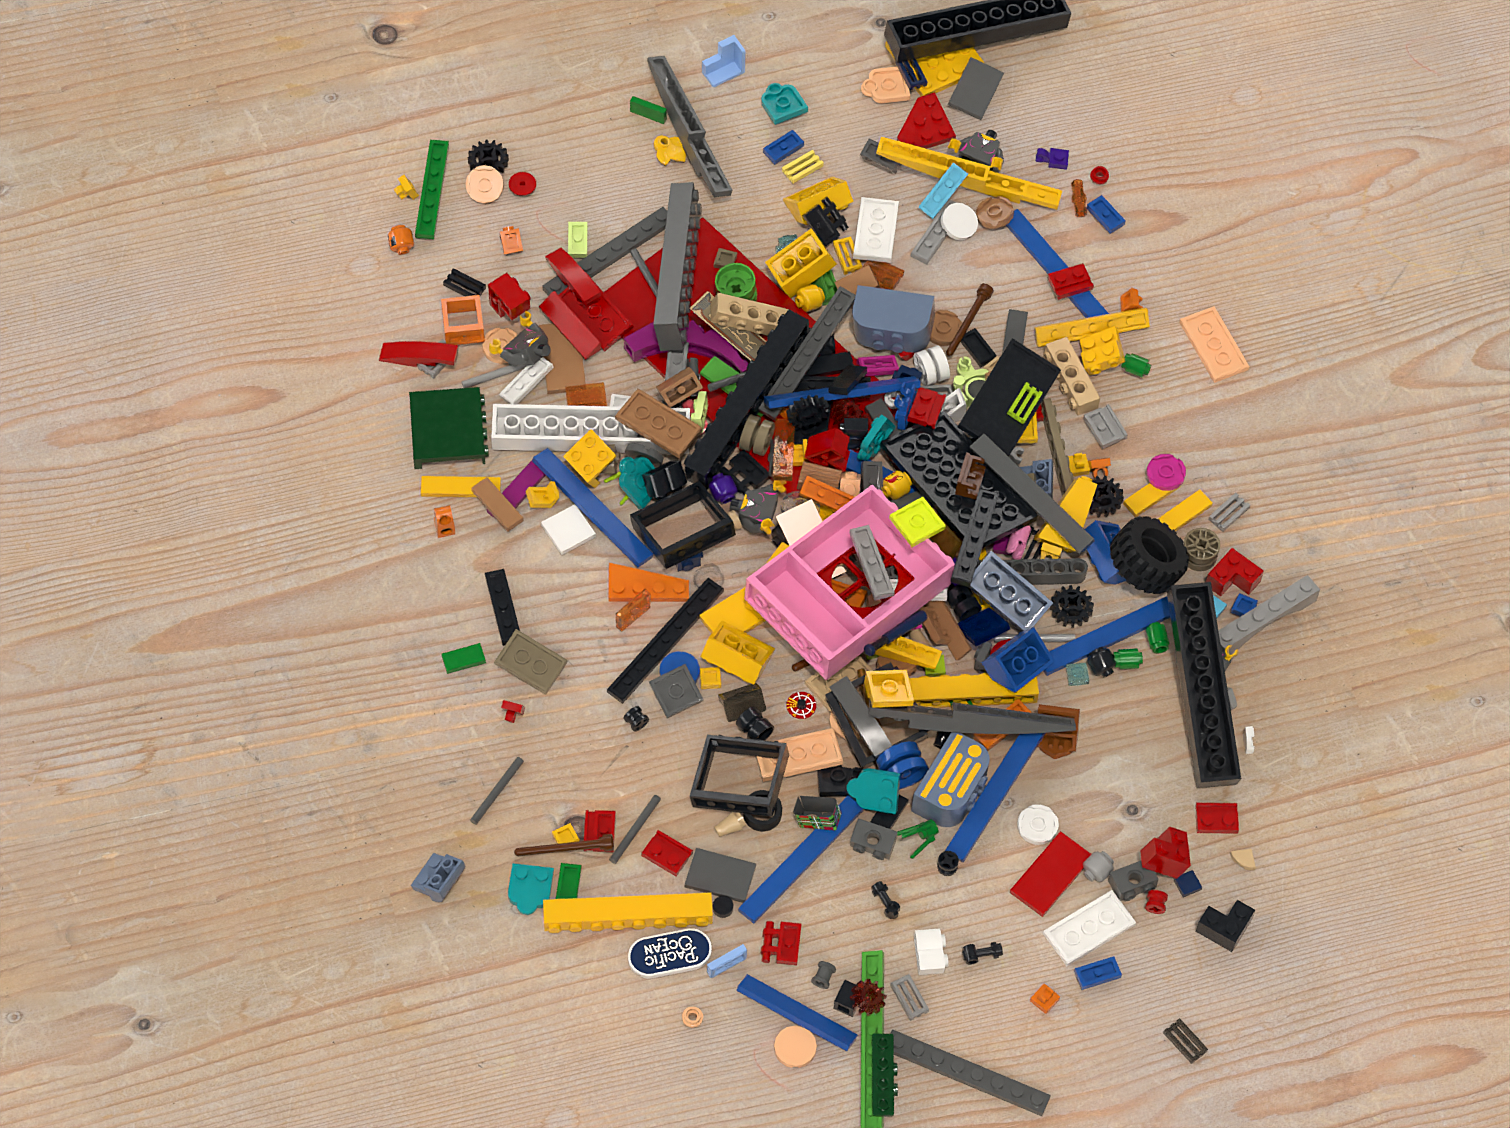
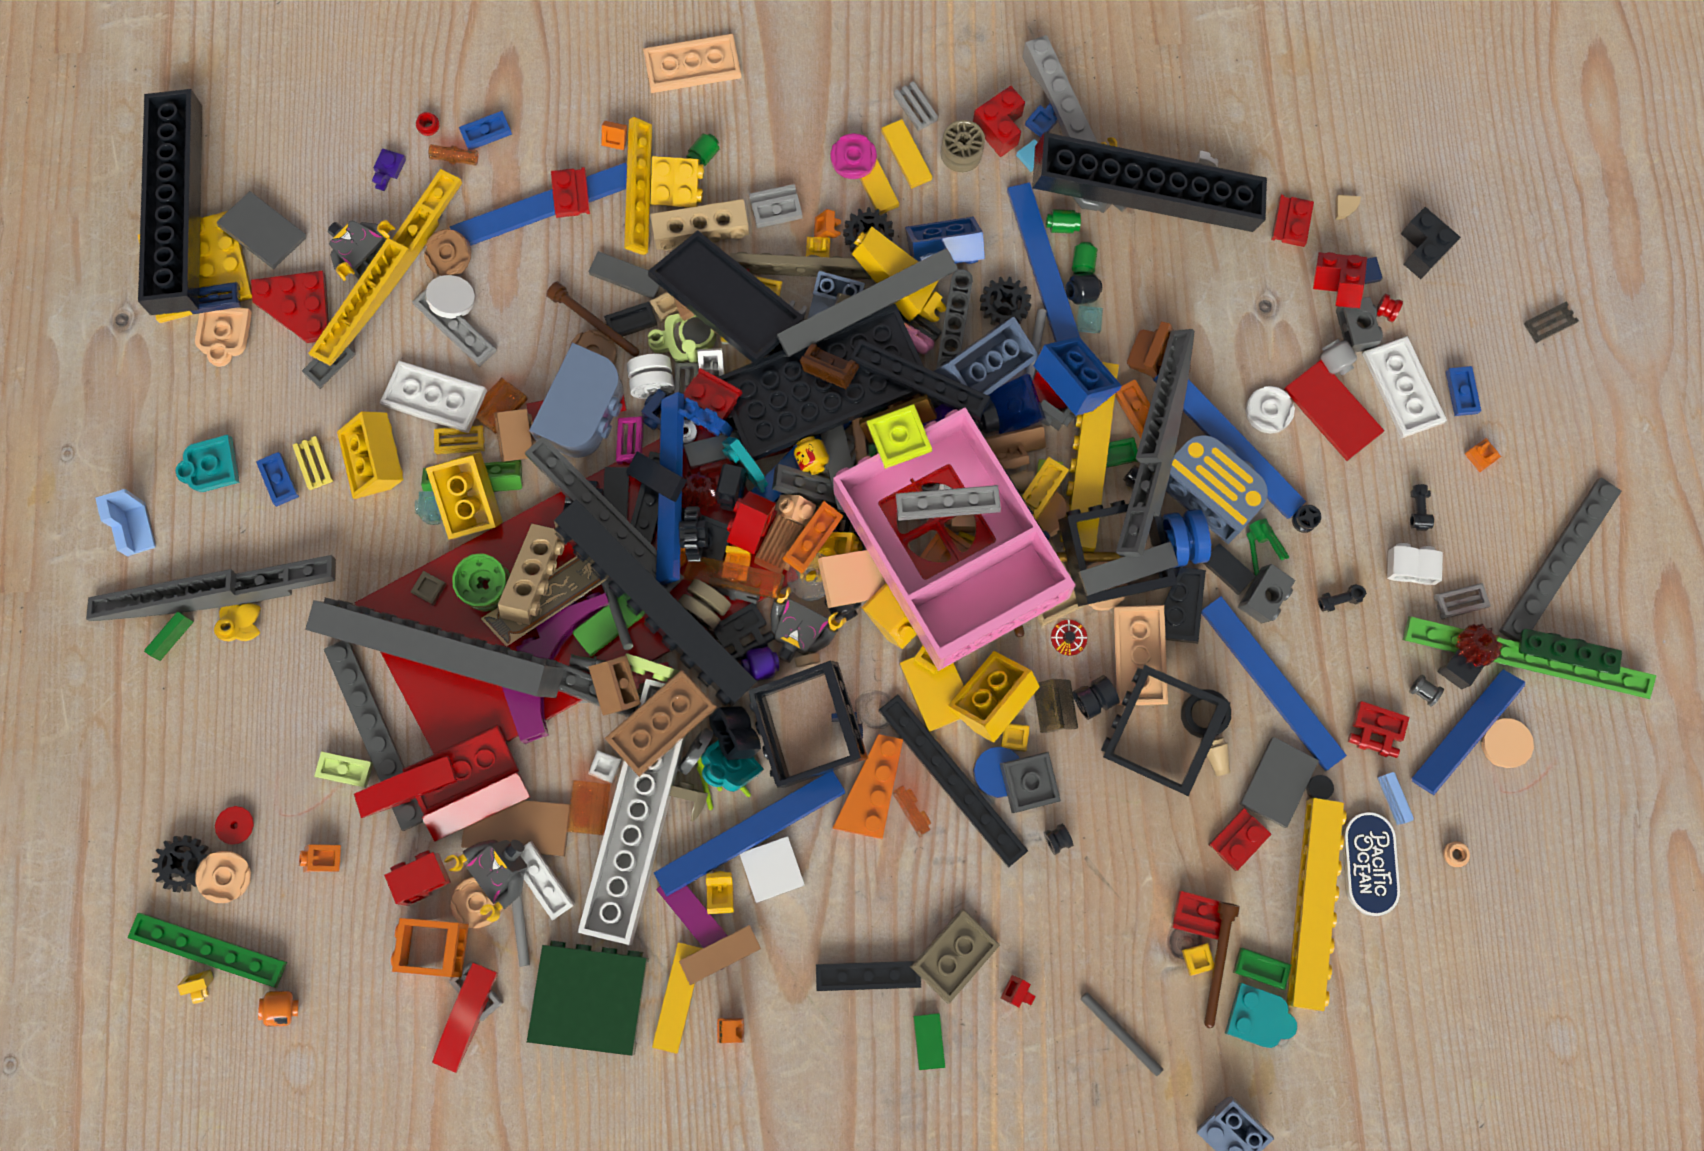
camera: 80 degrees left, 15 degrees up
(465, 281) = (354, 950): black tile -> none
(590, 457) = (686, 820): yellow bracket -> none
(634, 829) = (1197, 867): dark grey bar -> none
(645, 271) = (428, 690): dark grey bar -> none
(809, 298) = (514, 497): yellow head -> none
(816, 806) = (1221, 639): piece -> none
(821, 224) = (411, 458): black plate -> none
(876, 790) = (1215, 575): teal plate -> none
(888, 688) = (1113, 525): yellow plate -> none
(943, 190) = (404, 302): medium azure tile -> none
(1032, 391) = (741, 278): lime tile -> none
(1149, 555) = (972, 196): black tyre -> none

